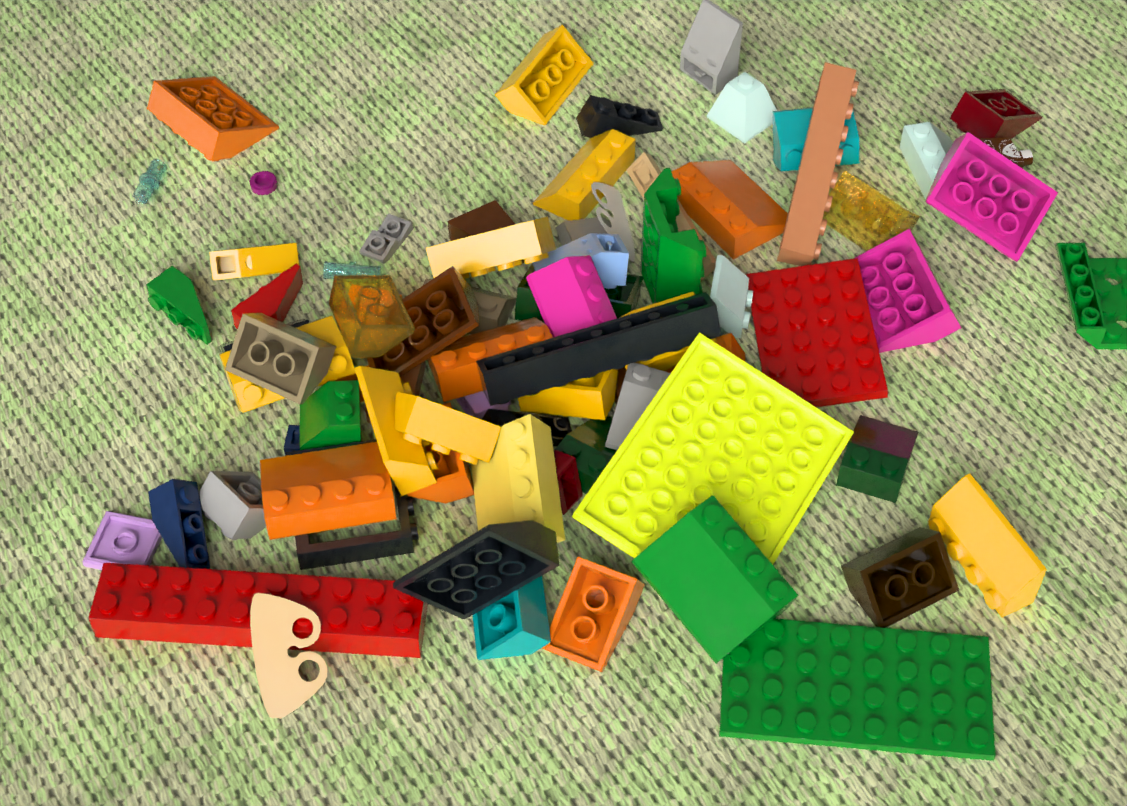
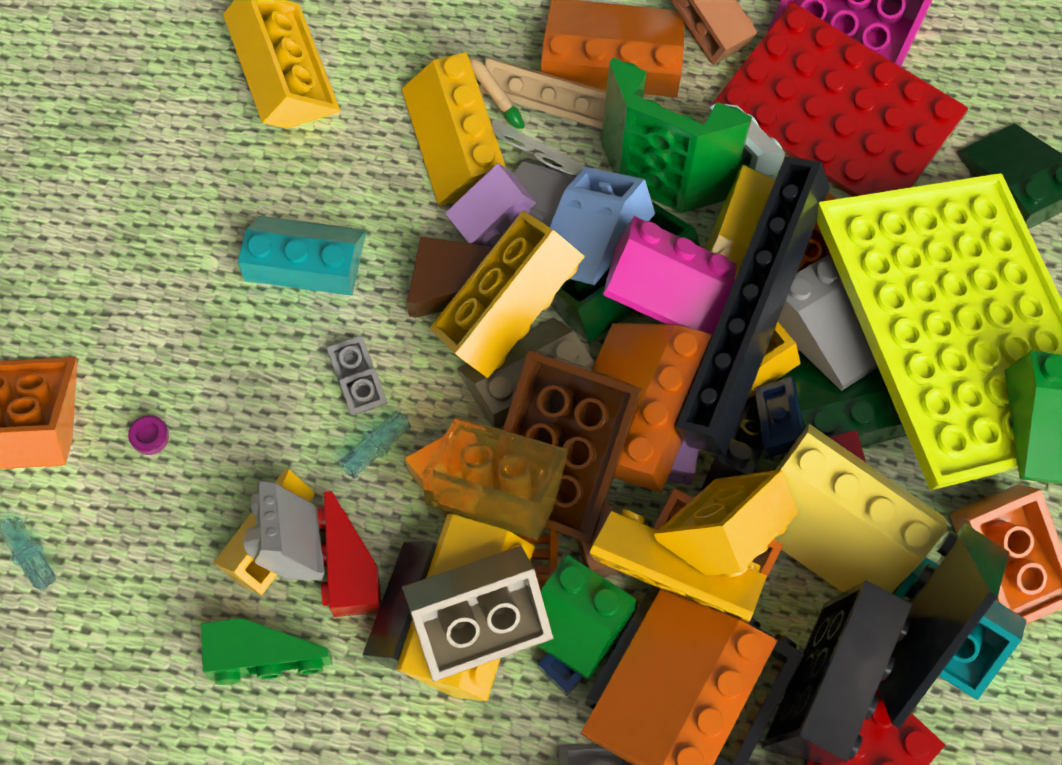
camera: 50 degrees left, 15 degrees up
(253, 259) = (284, 534): none -> light grey slope
(401, 539) = (839, 676): none -> black slope
(434, 166) = (301, 255): none -> teal slope
(561, 210) = (490, 207): none -> lavender brick
(564, 422) = (779, 415): none -> dark blue plate
(602, 115) = (405, 47): black slope -> none
(631, 176) = (511, 112): none -> tan piece

